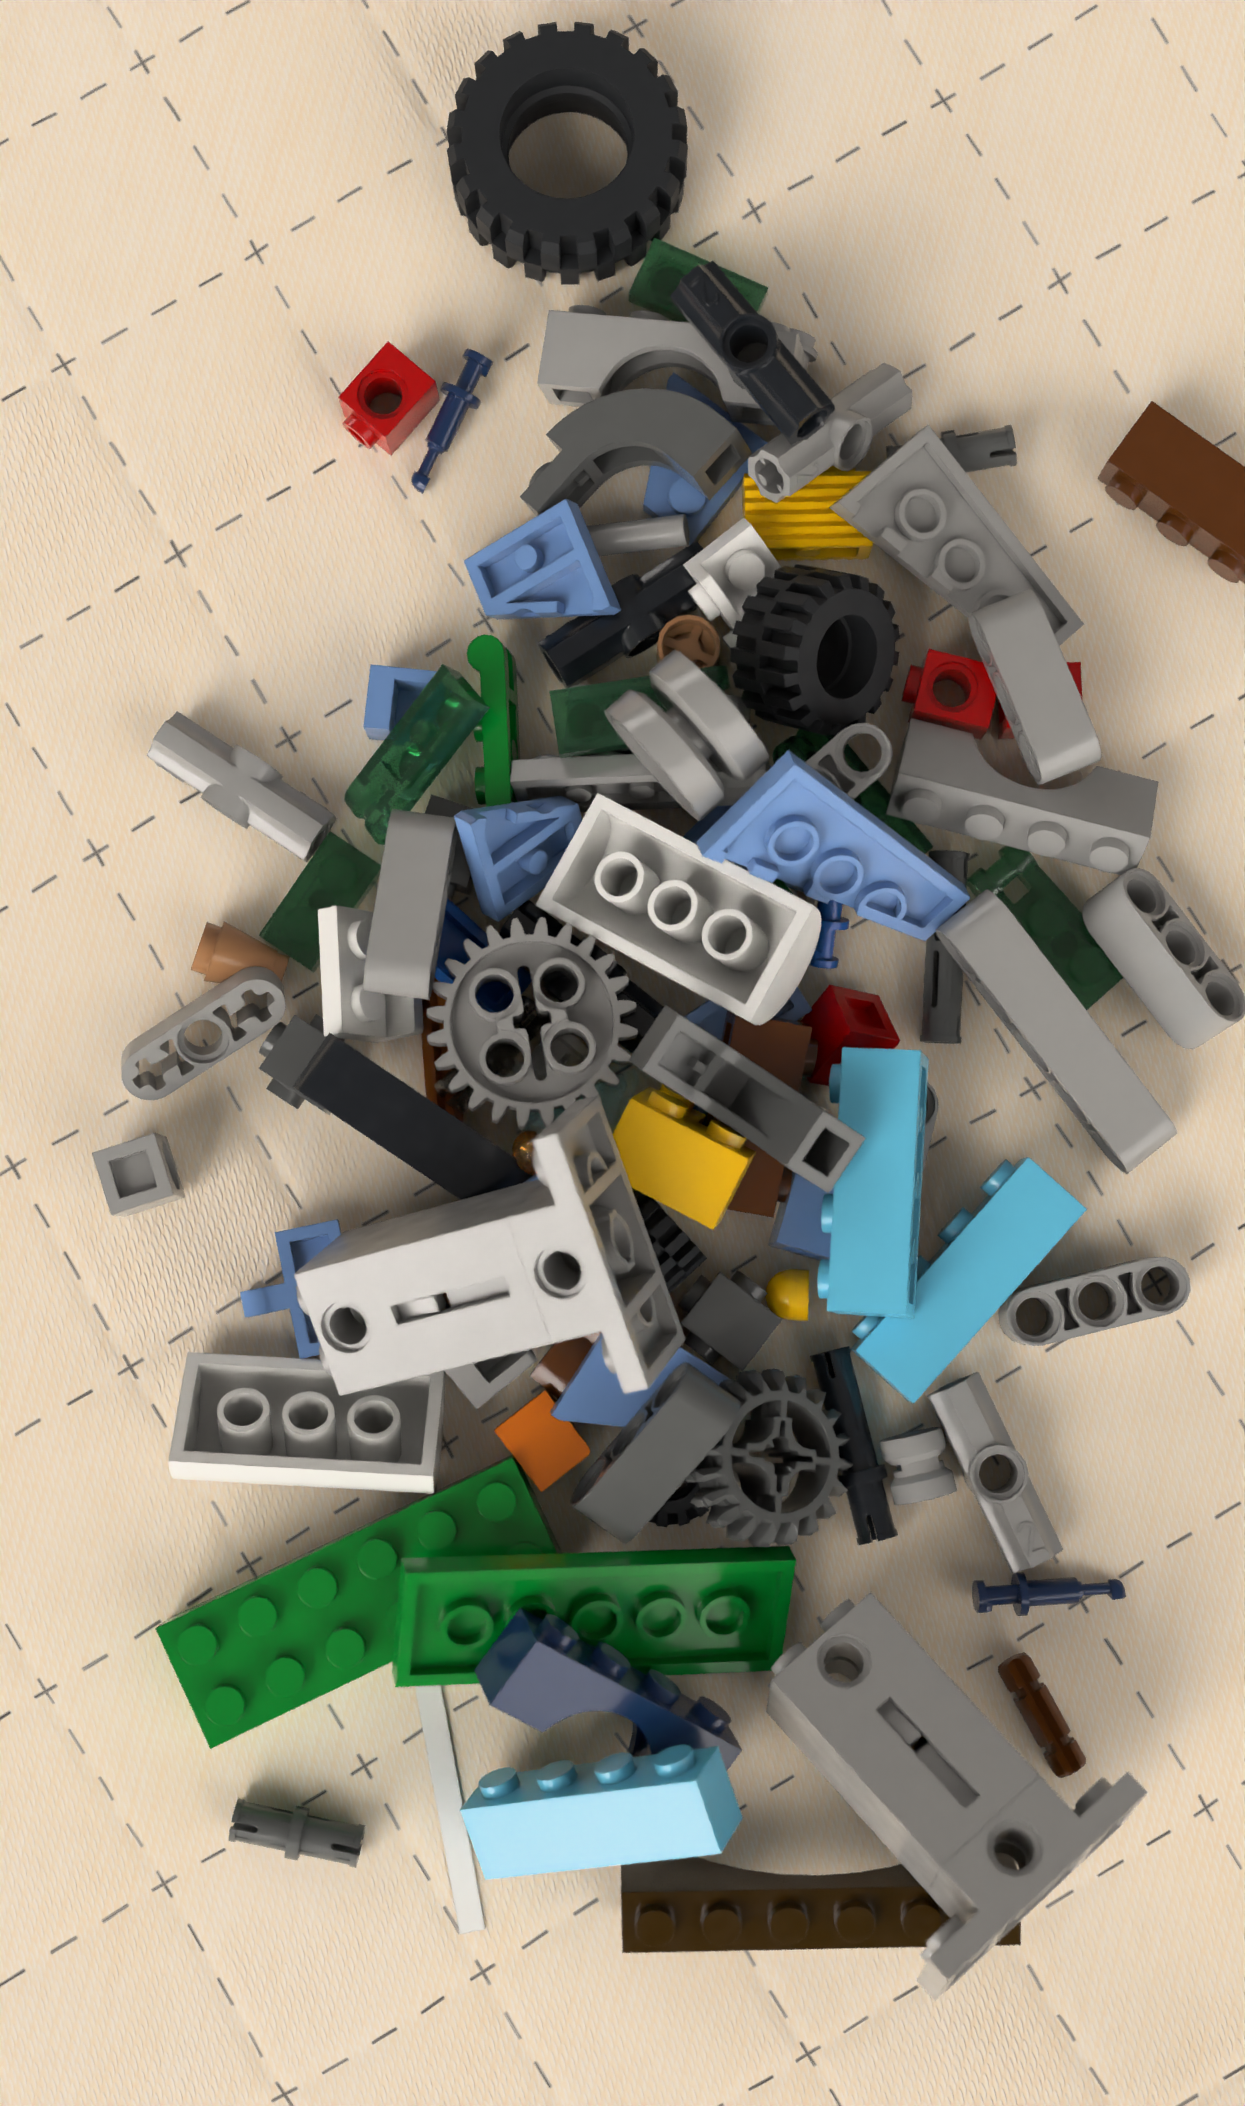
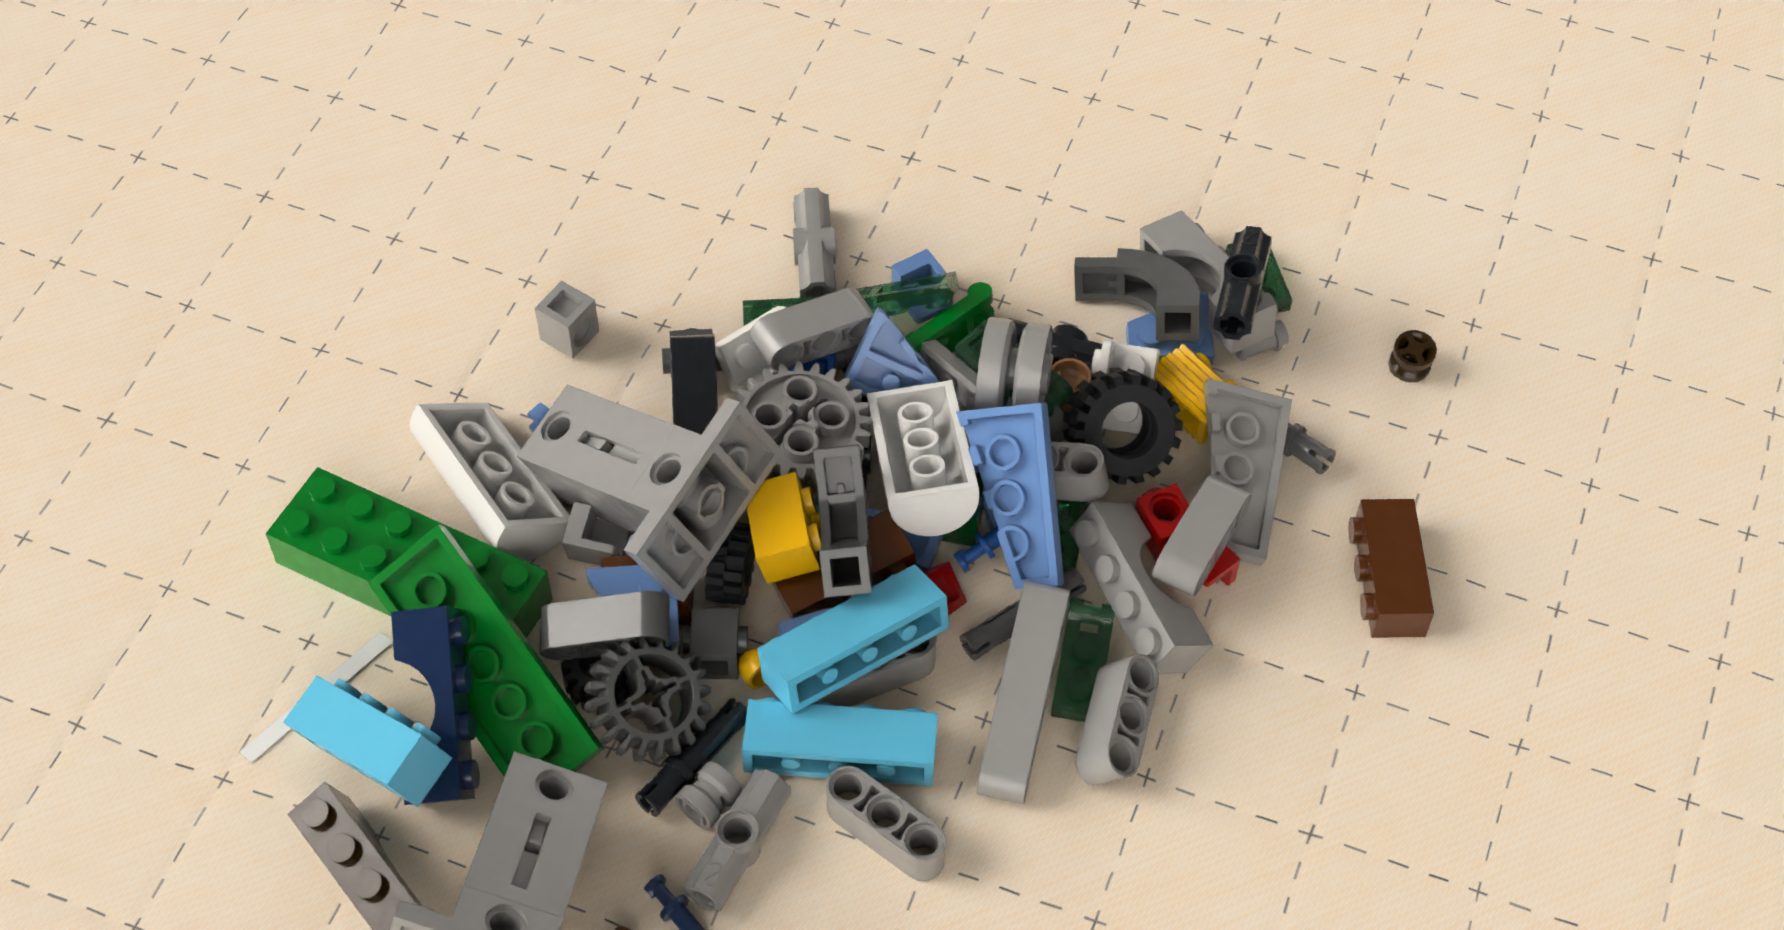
camera: 50 degrees right, 30 degrees down
(175, 1073) = (655, 292): light grey beam -> none
(229, 950) = (721, 297): medium nougat cone -> none
(296, 1833) = (244, 626): dark grey pin -> none
(387, 373) = (1070, 183): red brick -> none
(452, 412) = (1091, 217): dark blue piece -> none
(541, 1442) = (566, 583): orange panel -> none
(543, 570) = (1048, 293): medium blue wing -> none
(551, 77) = (1275, 135): black tyre -> none
(640, 535) = (1100, 322): light grey piece -> none
(843, 440) = (1265, 373): light grey piece -> none
(955, 205) = (1418, 347): none -> dark brown wheel

